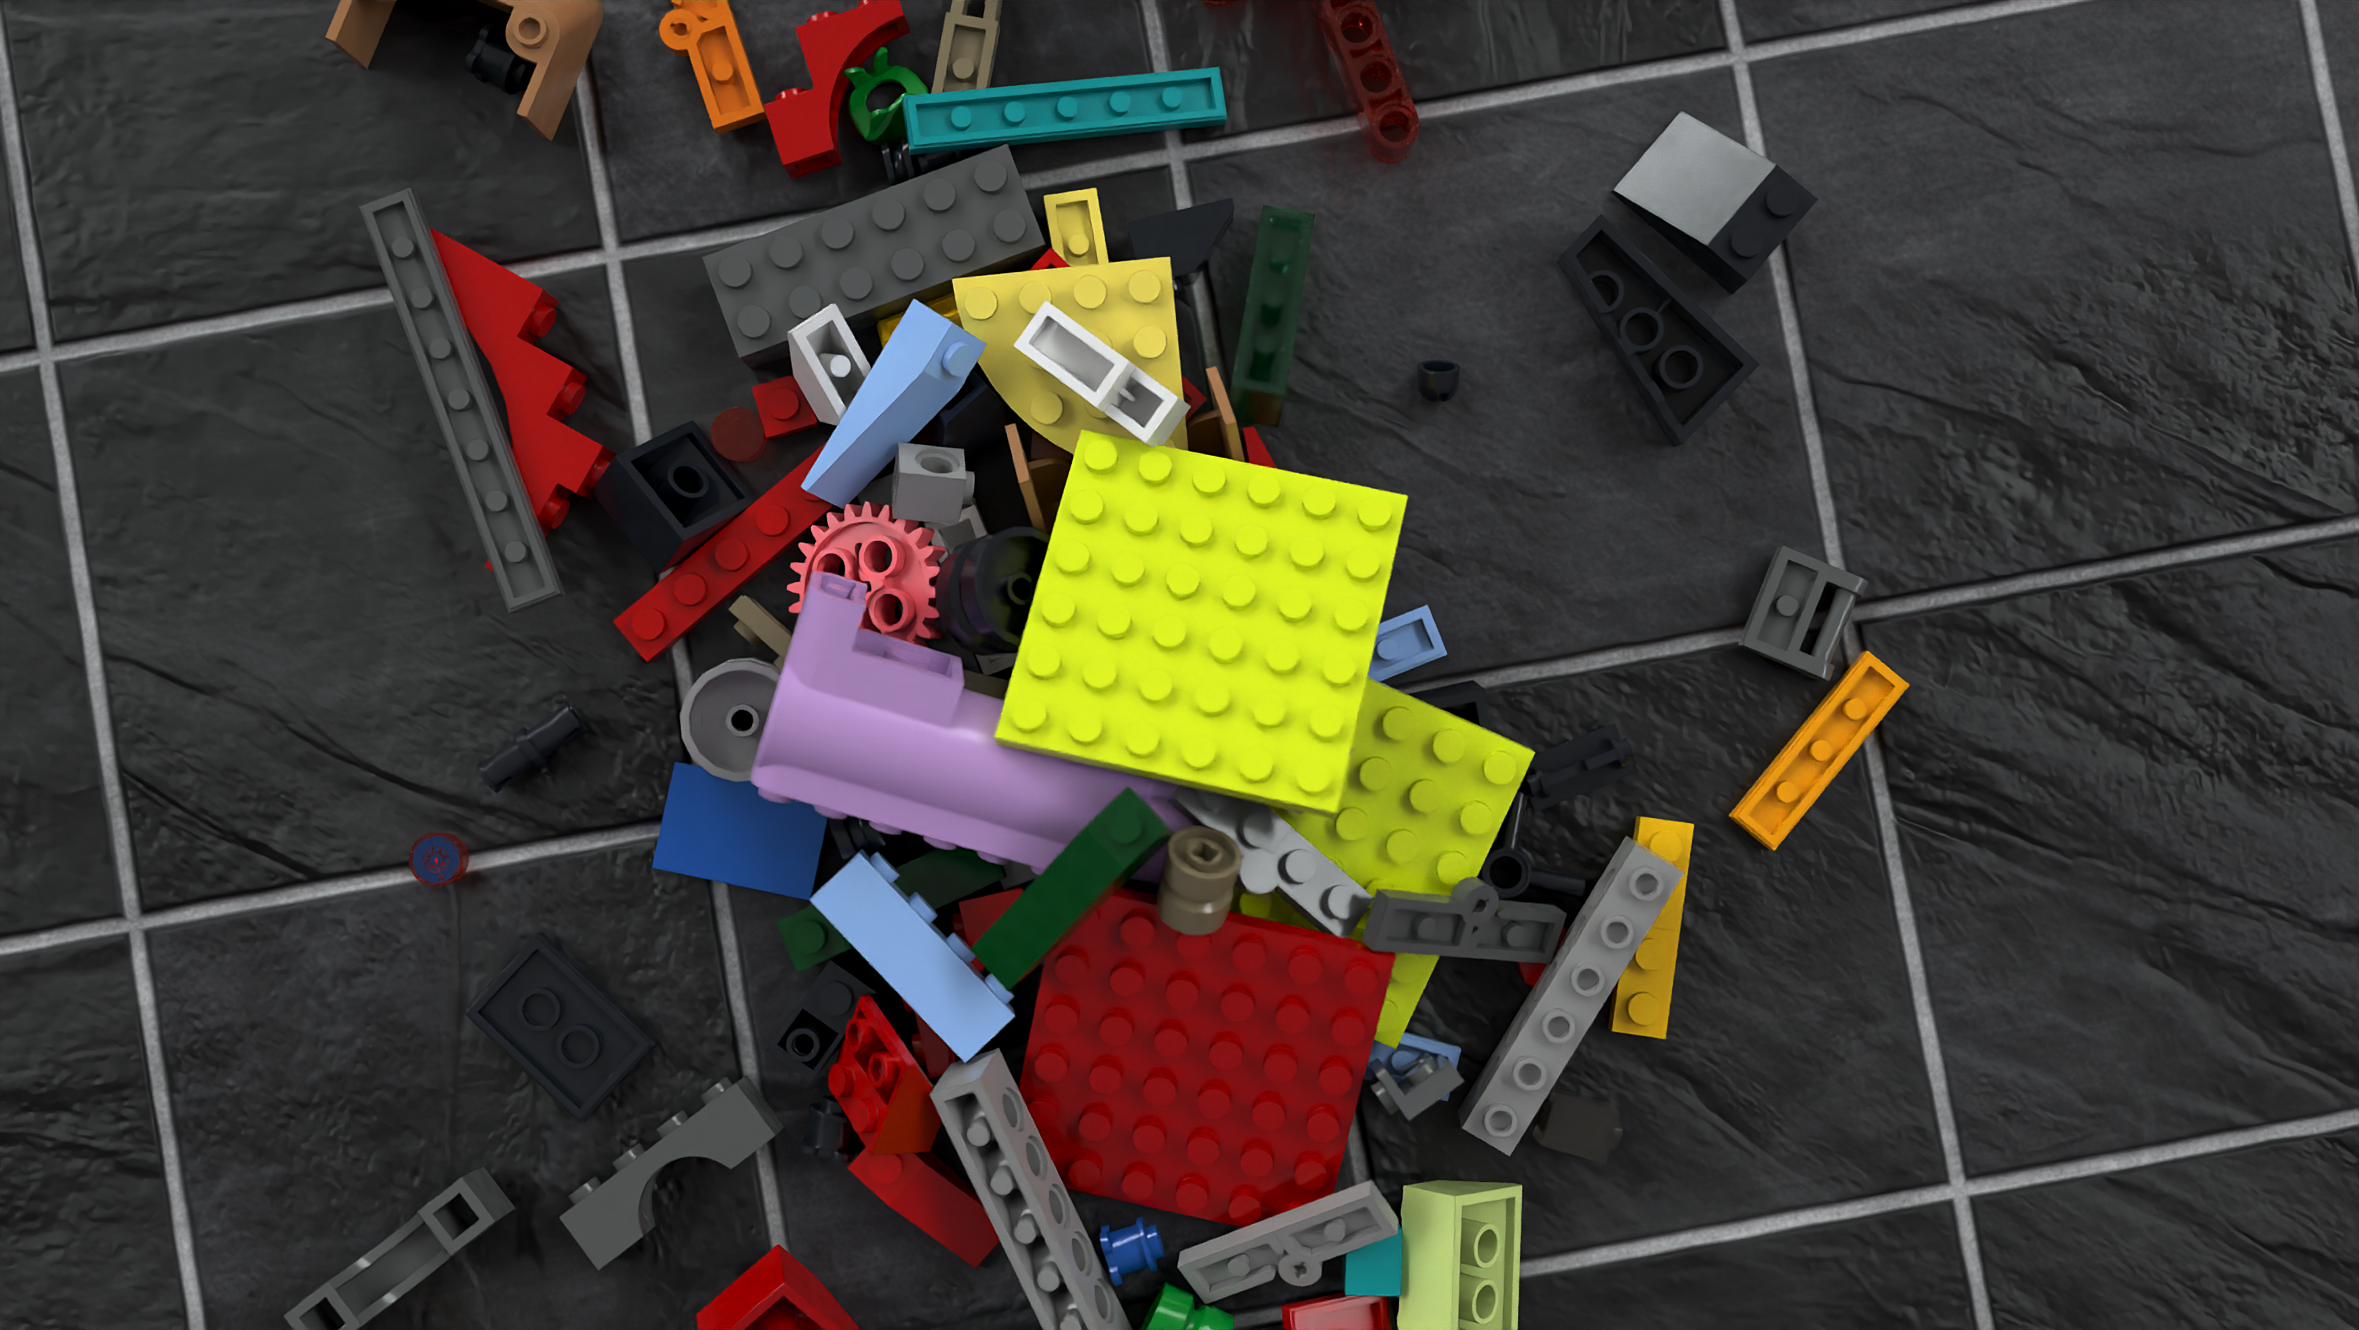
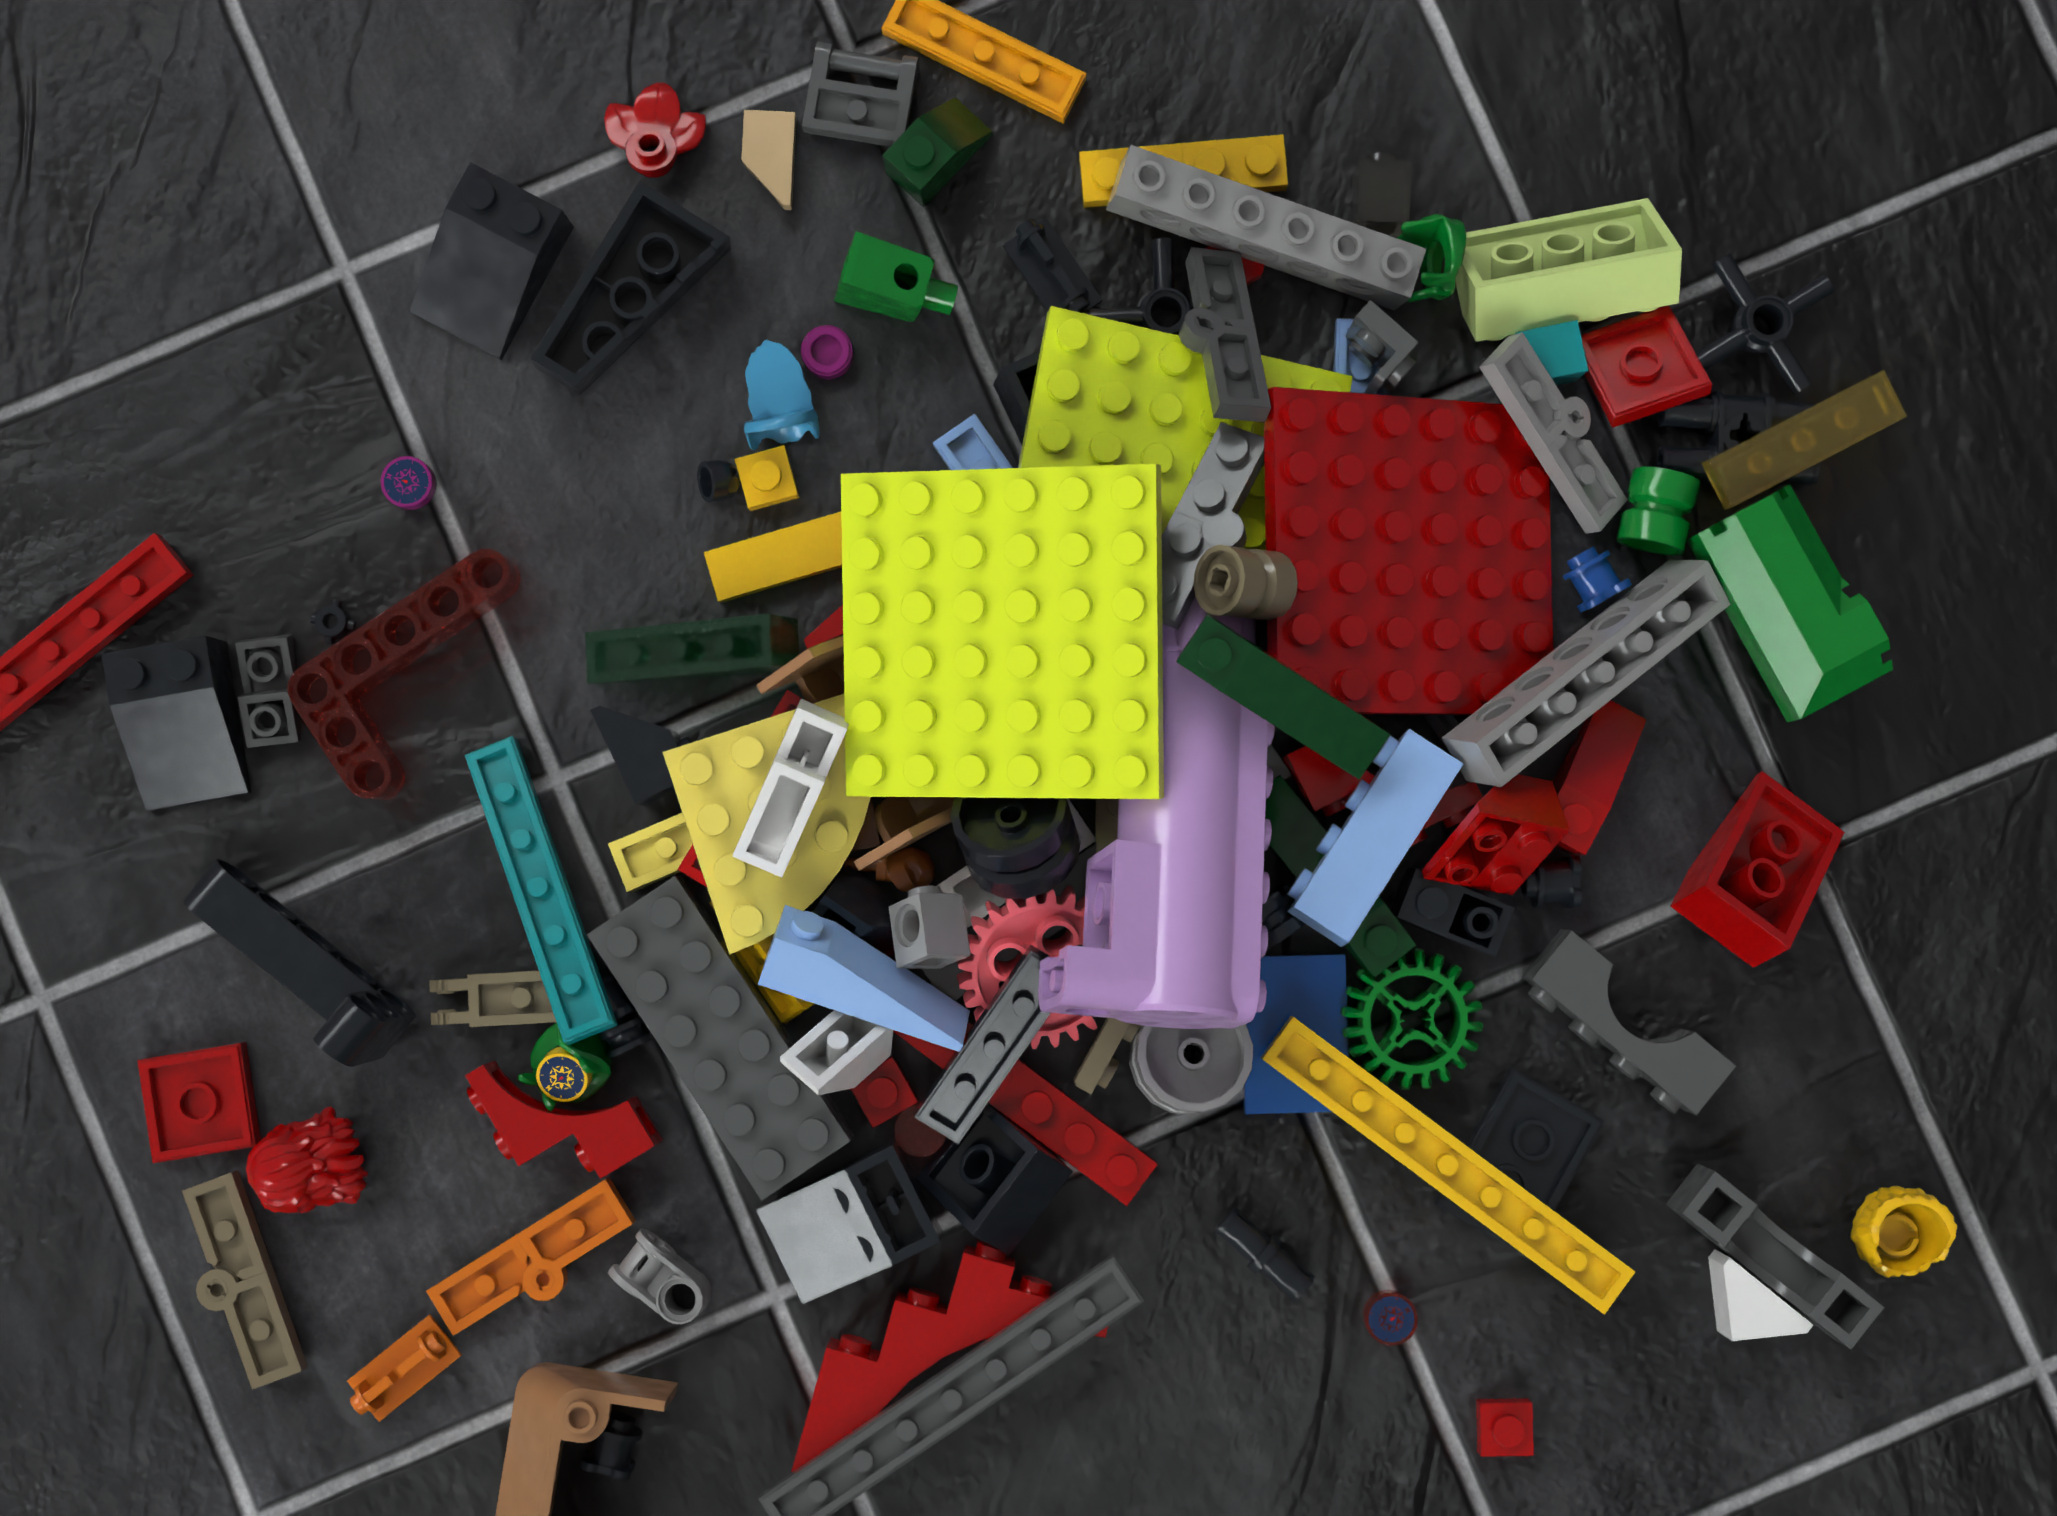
camera: 100 degrees left, 0 degrees up
(302, 948) = (1505, 1427): none -> red plate
(355, 1223) = (1746, 1306): none -> white slope
(571, 952) = (1448, 1164): none -> yellow plate
(653, 140) = (658, 1277): none -> light grey piece
(662, 345) = (850, 1222): none -> slope
(713, 931) = (1395, 1036): none -> green gear
(794, 514) = (987, 1052): none -> tile
(874, 89) = (561, 1076): none -> tile
(997, 478) = (905, 868): none -> dark orange piece
(1345, 417) = (776, 558): none -> yellow tile
(1429, 430) = (767, 478): none -> yellow plate
(1506, 71) = (408, 482): none -> tile
(1508, 458) = (778, 397): none -> dark azure piece
(1514, 1175) = (1440, 238): none -> green piece
(1544, 520) = (827, 352): none -> magenta tile
(1605, 576) = (871, 274): none -> green torso
(1729, 677) = (934, 149): none -> dark green slope
(1764, 509) = (770, 151): none -> tan tile
(1820, 396) = (654, 123): none -> red plate

